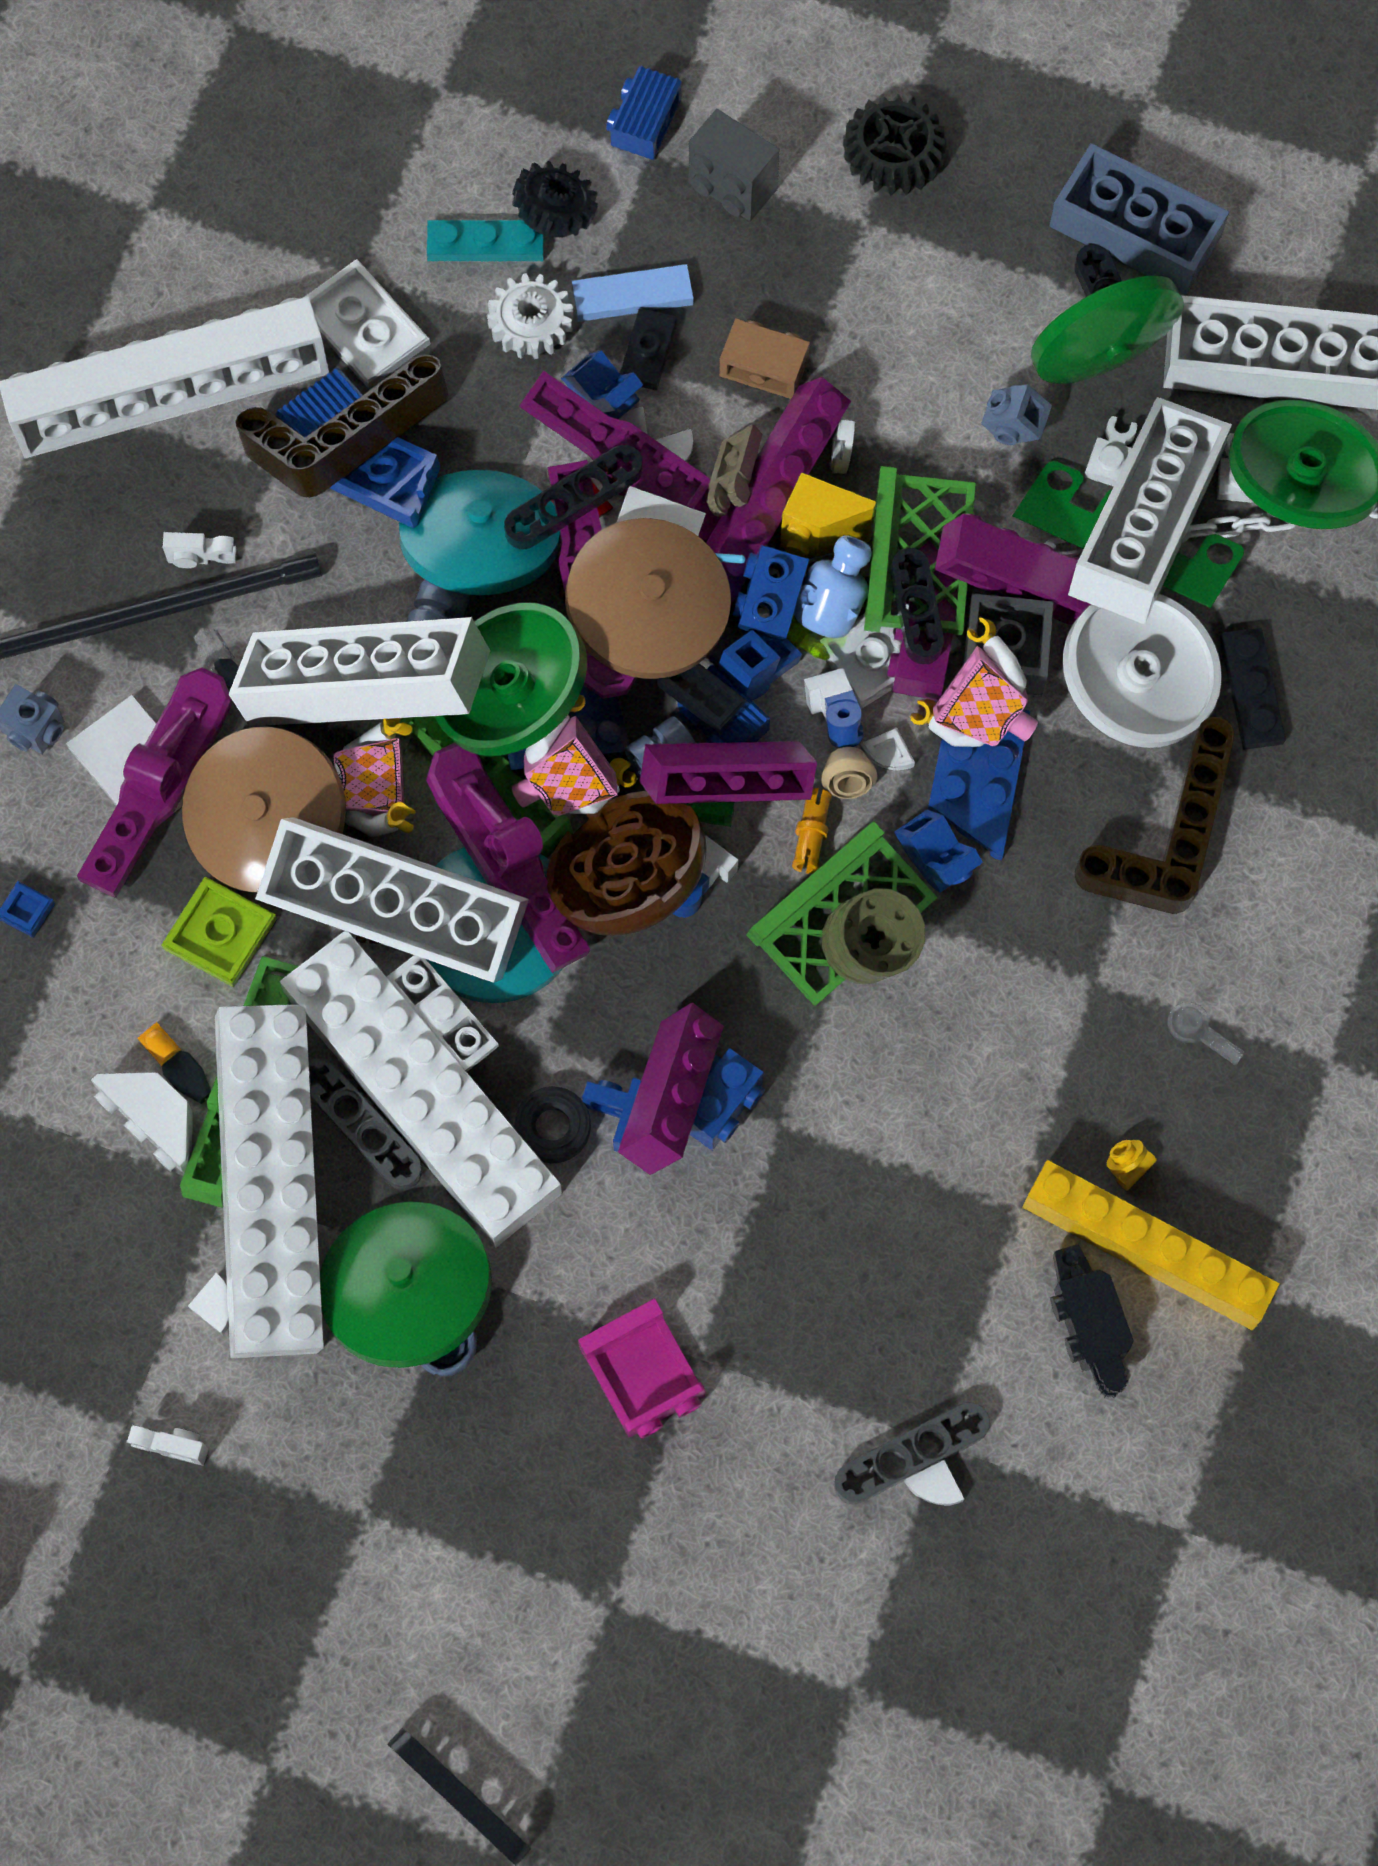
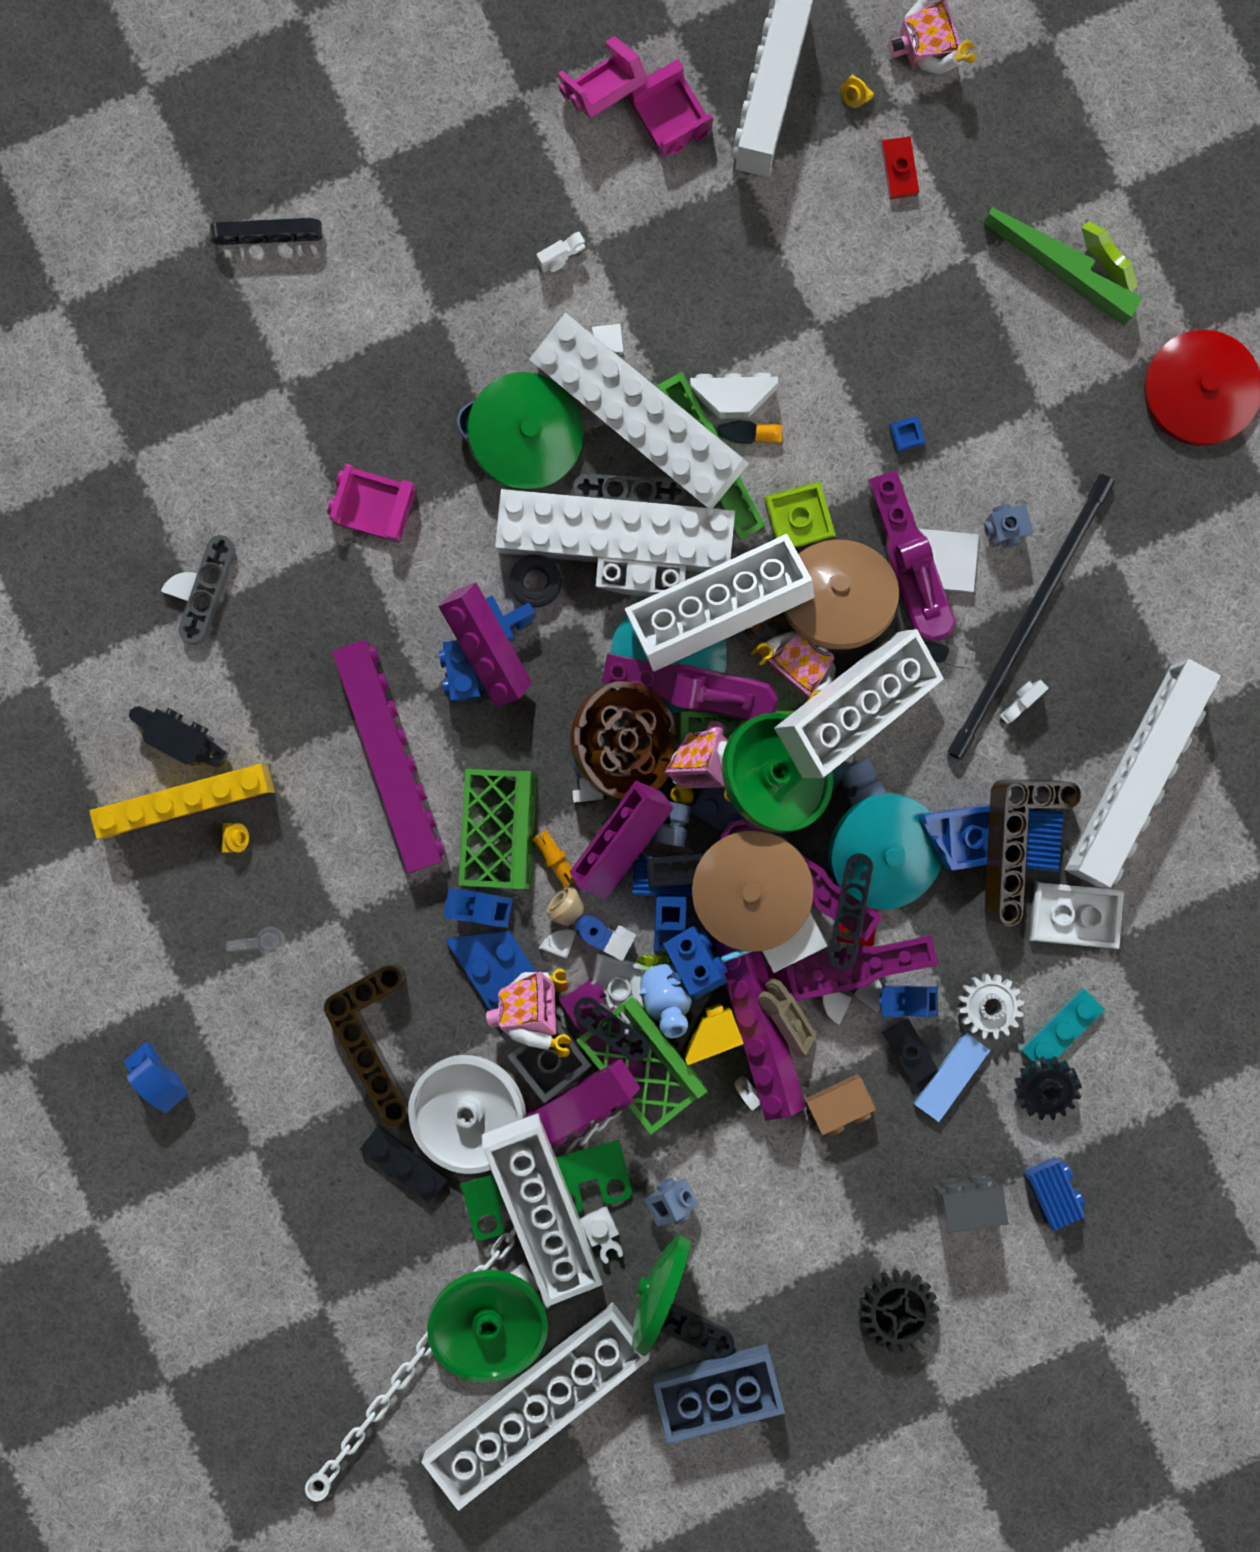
camera: 140 degrees right, 15 degrees up
(882, 1091) = (388, 755): none -> magenta brick
(896, 933) = (447, 825): olive wheel -> none

